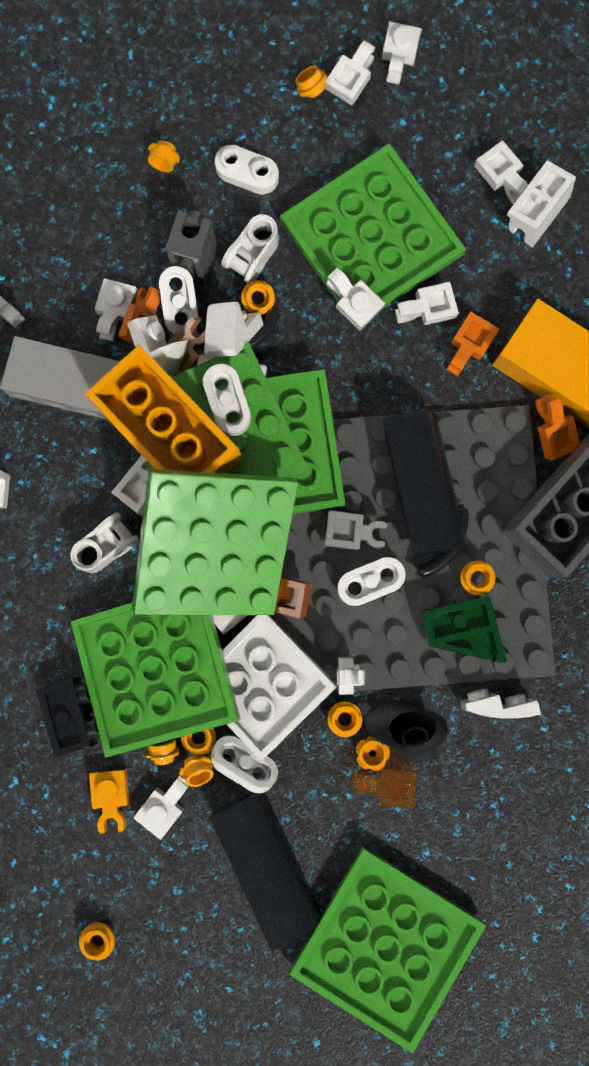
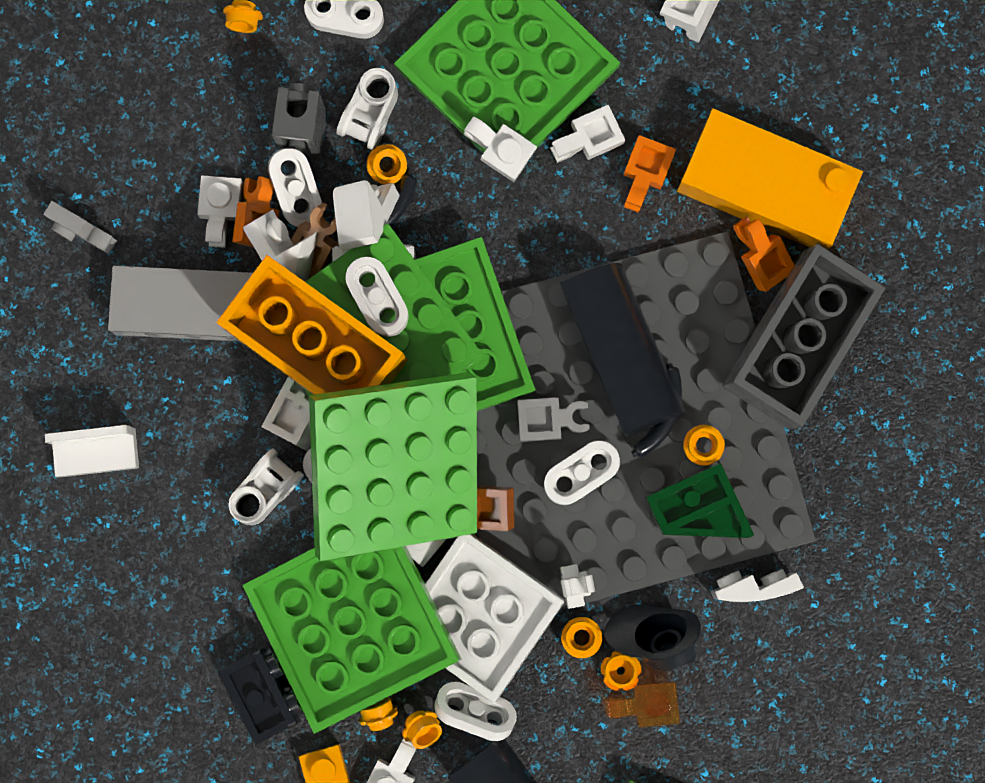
camera: 10 degrees left, 0 degrees up
(199, 748) = (417, 704): light orange plate -> none

